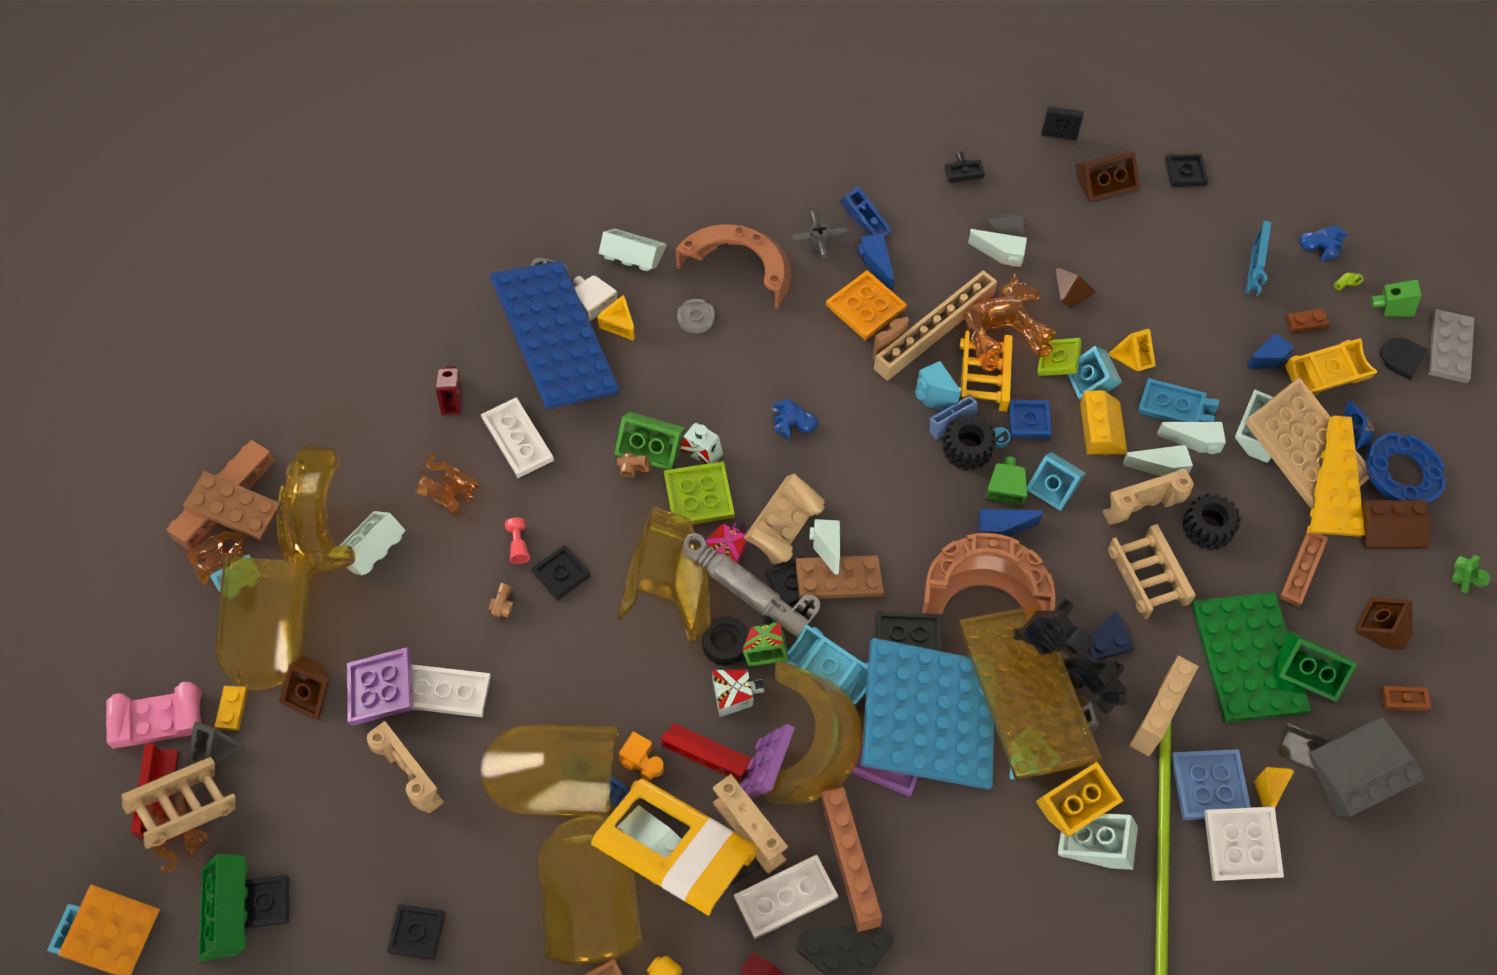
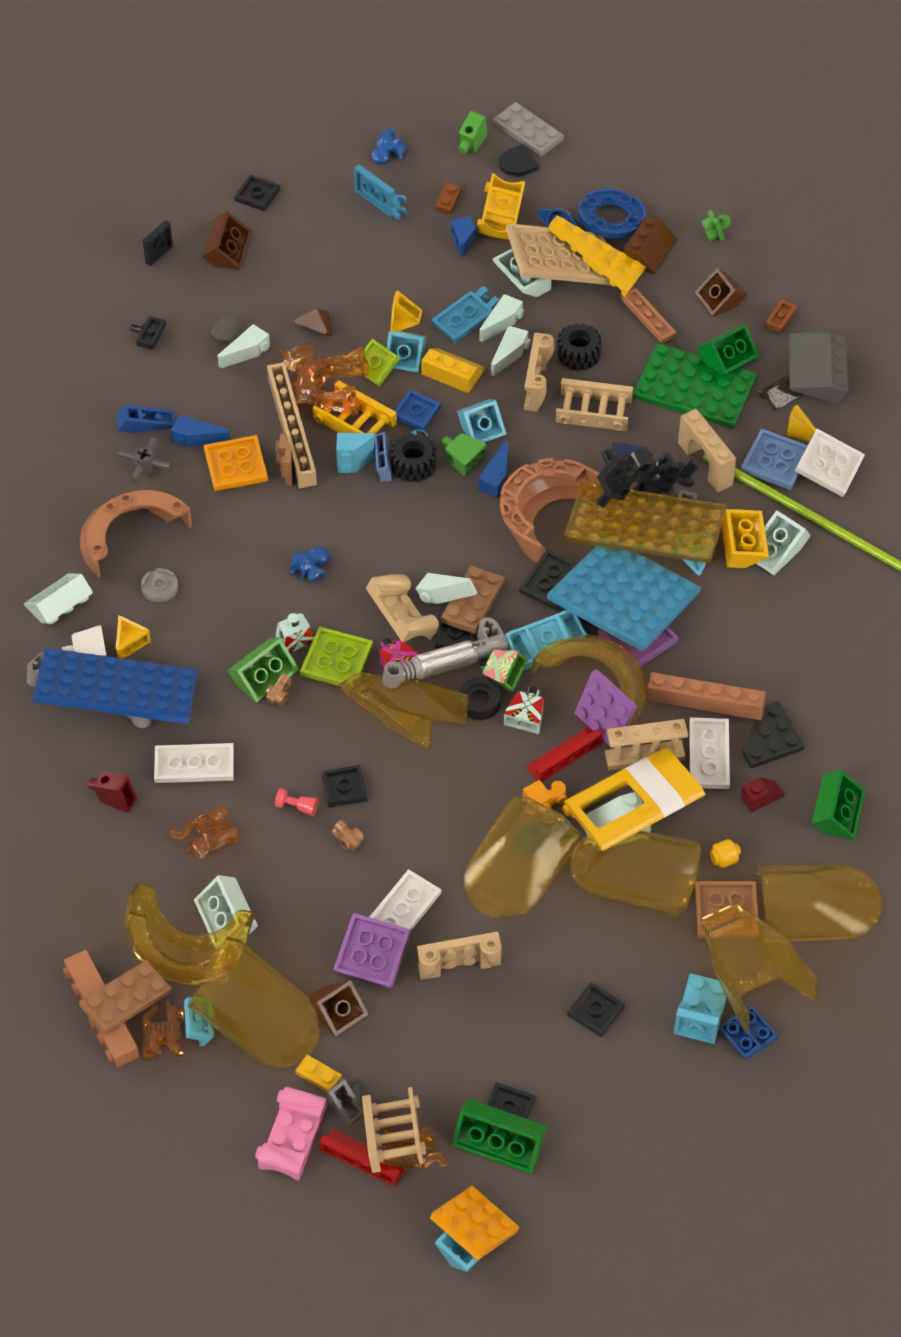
camera: 60 degrees left, 5 degrees down
(1348, 279) = (430, 153): lime arm -> none

